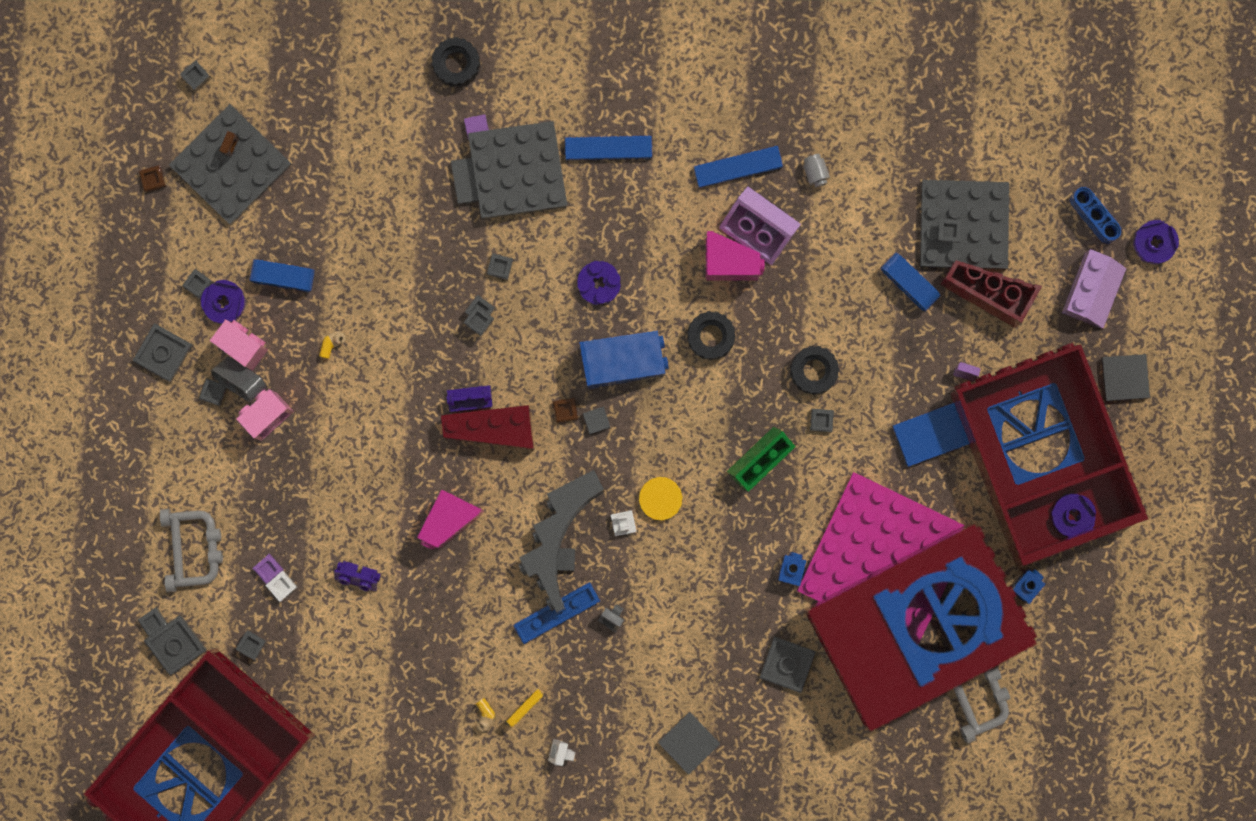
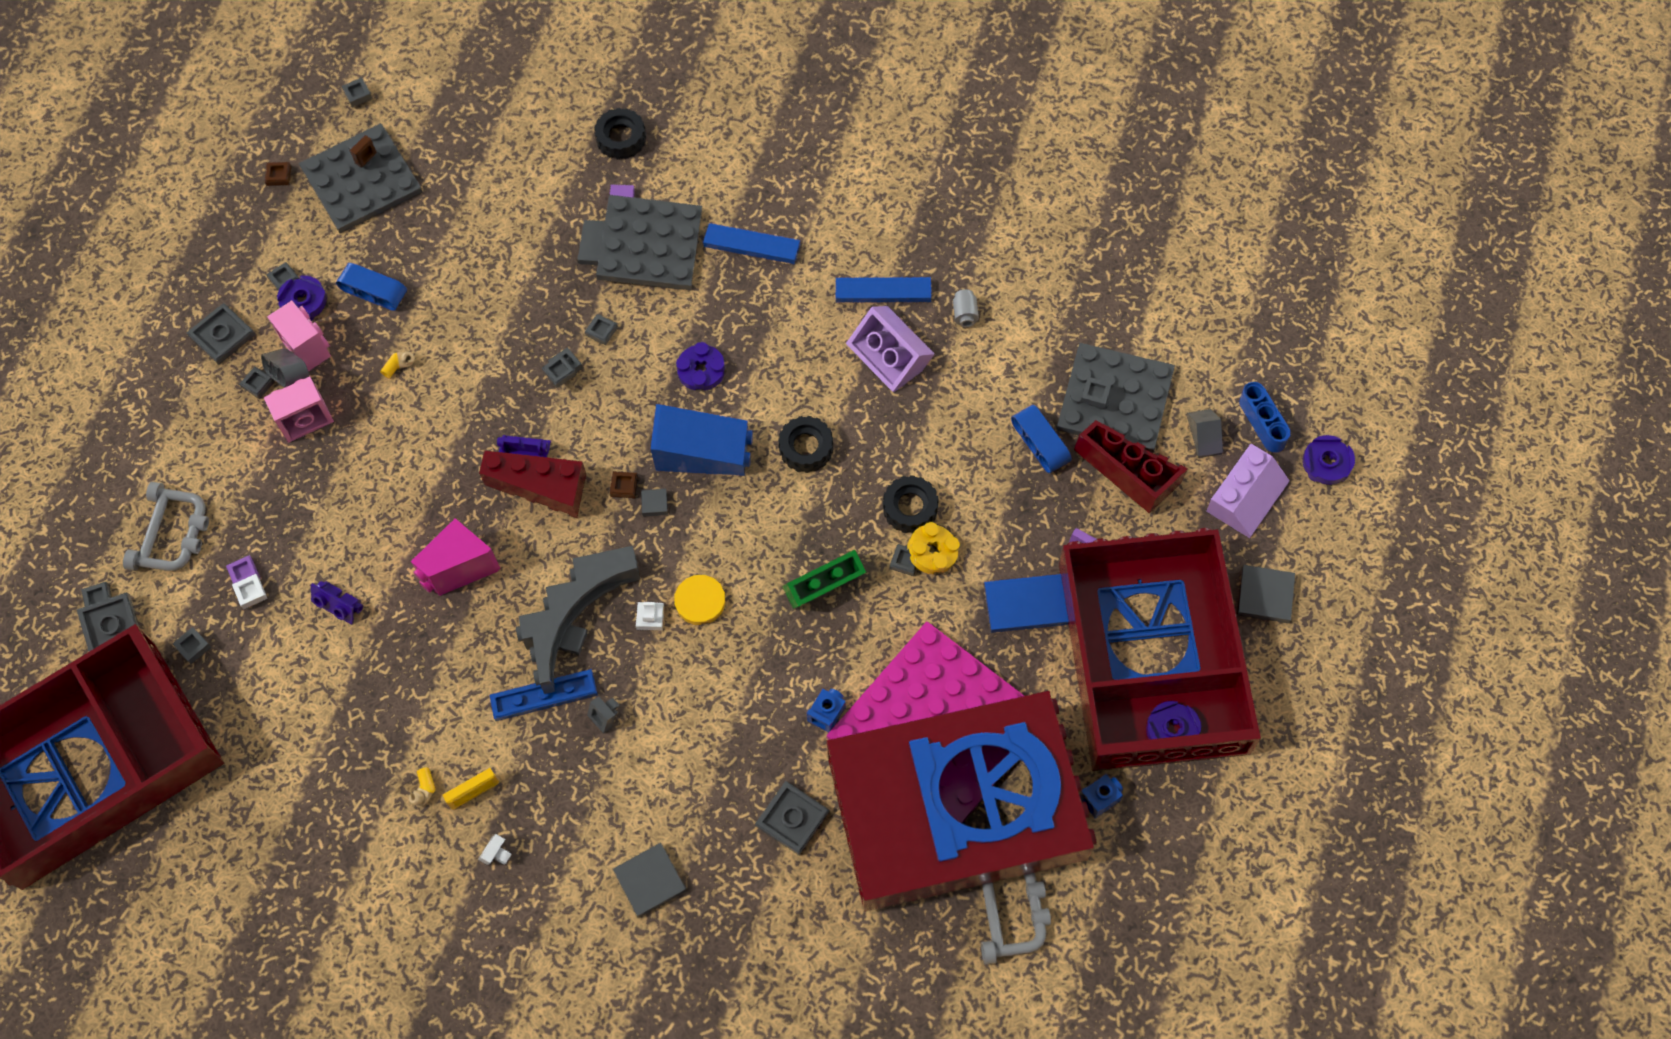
camera: 15 degrees right, 20 degrees down
(730, 260) = (847, 370): dark pink slope -> none
(834, 414) = (944, 542): none -> yellow plate
(1048, 239) = (1206, 432): none -> dark grey slope

